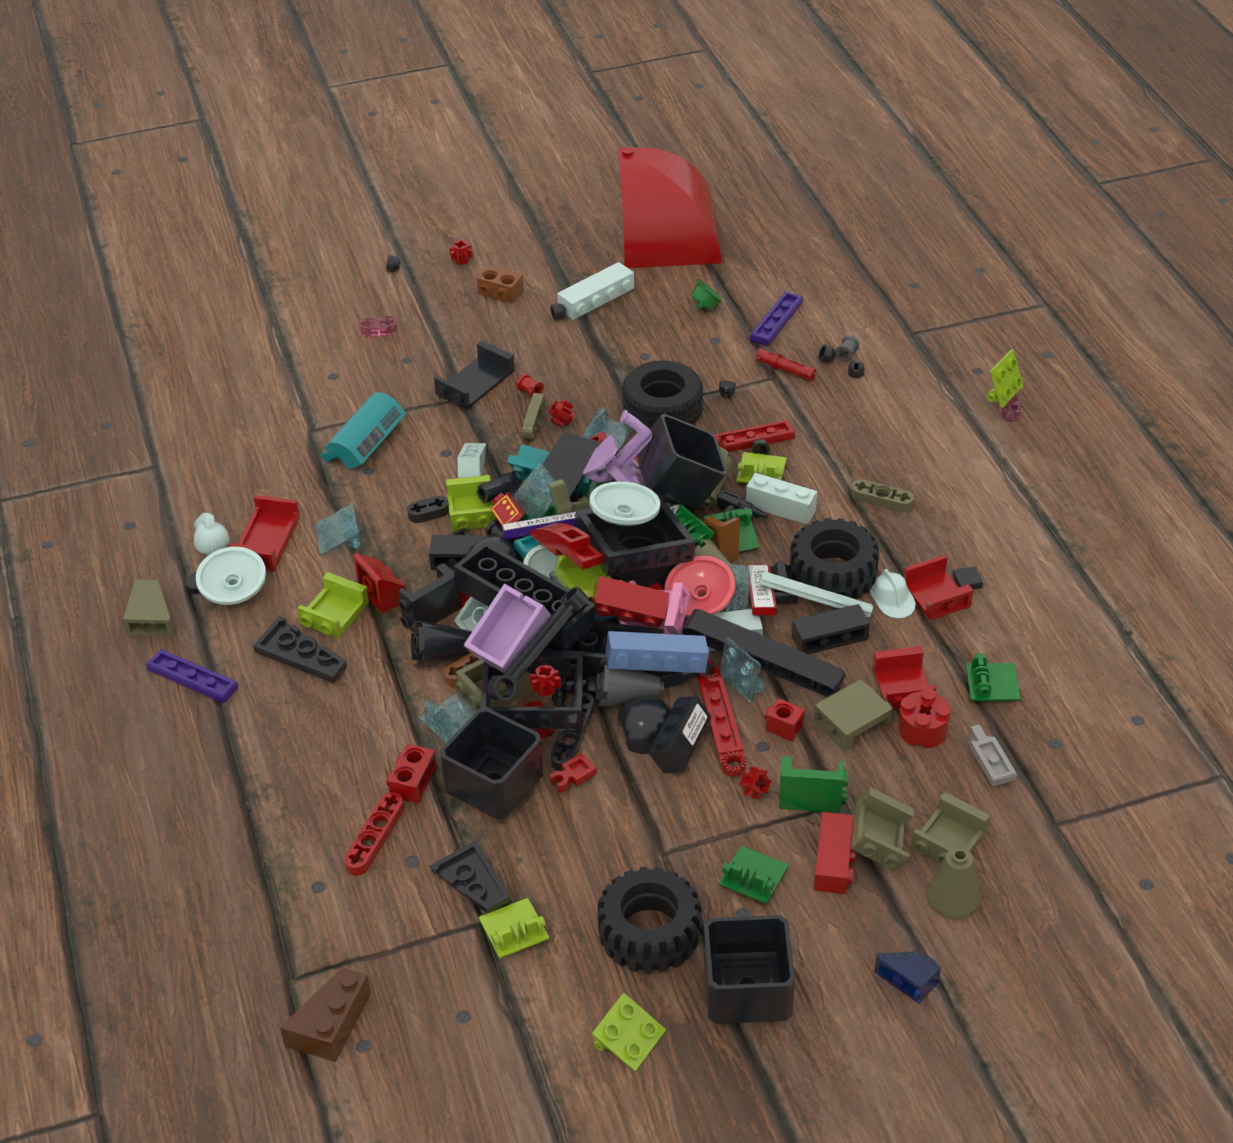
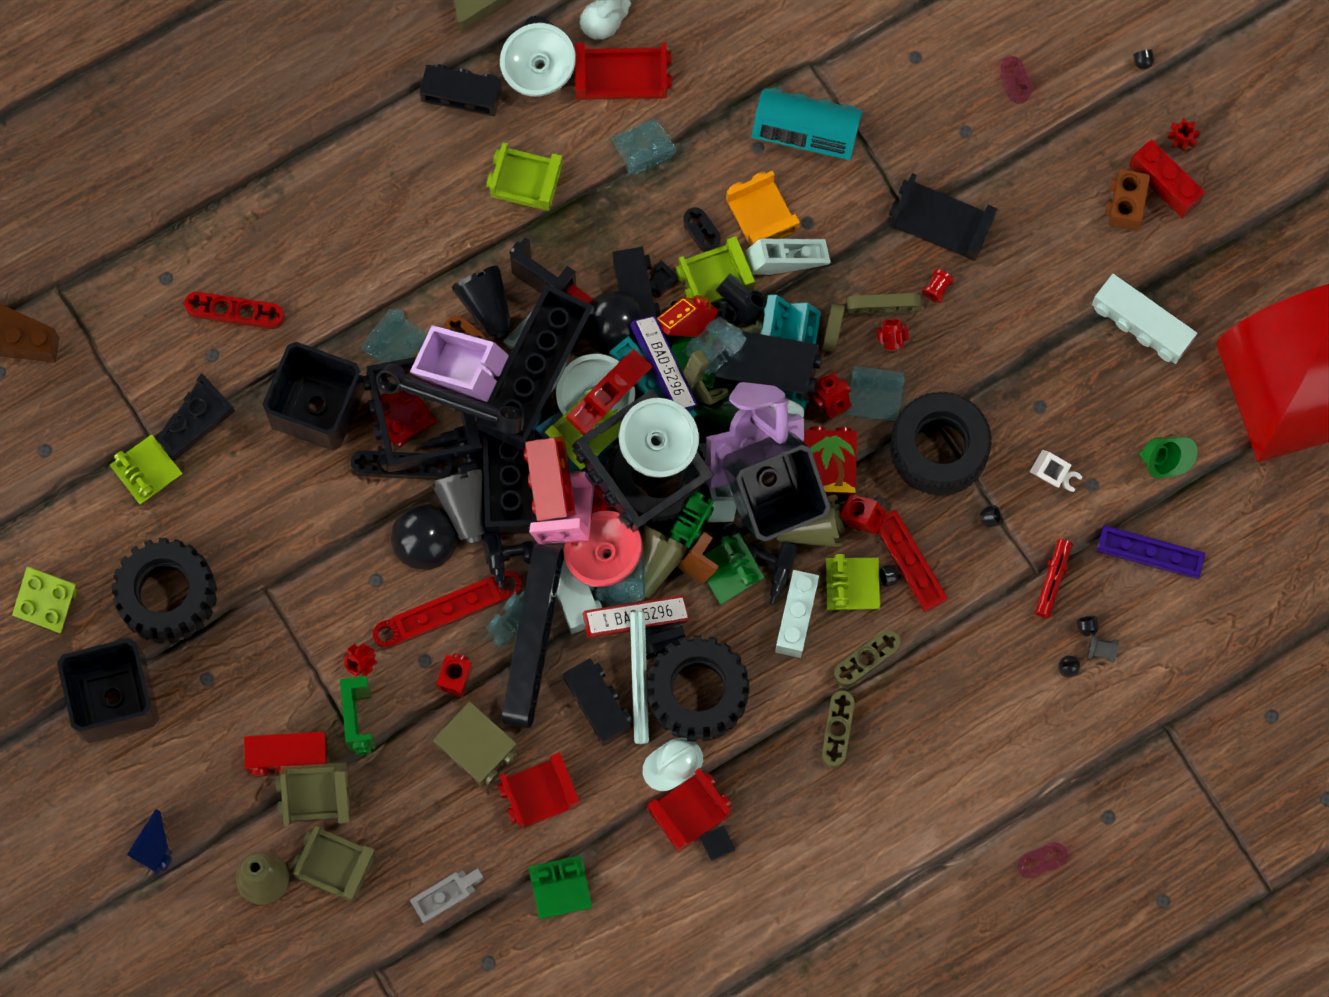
camera: 75 degrees right, 30 degrees up
(192, 676) = (404, 70): dark purple tile -> none
(231, 636) = (460, 89): none -> black brick
(294, 649) = (457, 159): black wing -> none
(380, 582) = (563, 212): red slope -> none
(412, 772) = (308, 330): red brick -> none
(426, 474) = (761, 209): none -> light orange panel
(503, 256) = (1167, 178): none -> red brick
(540, 441) = (833, 327): none -> olive beam
(545, 680) = (413, 412): red gear -> none
(557, 311) = (1093, 282): black hinge -> none
(574, 770) = (345, 480): red plate -> none
(656, 652) = (485, 523): medium blue brick -> none
(680, 734) = (404, 572): black brick -> none
(700, 347) = (1054, 470): none -> white brick
(753, 874) = (250, 679): green hinge -> none
(840, 481) = (855, 676): none -> olive beam
(924, 718) = (480, 803): red brick -> none
(1006, 380) = (1057, 848): lime hinge -> none

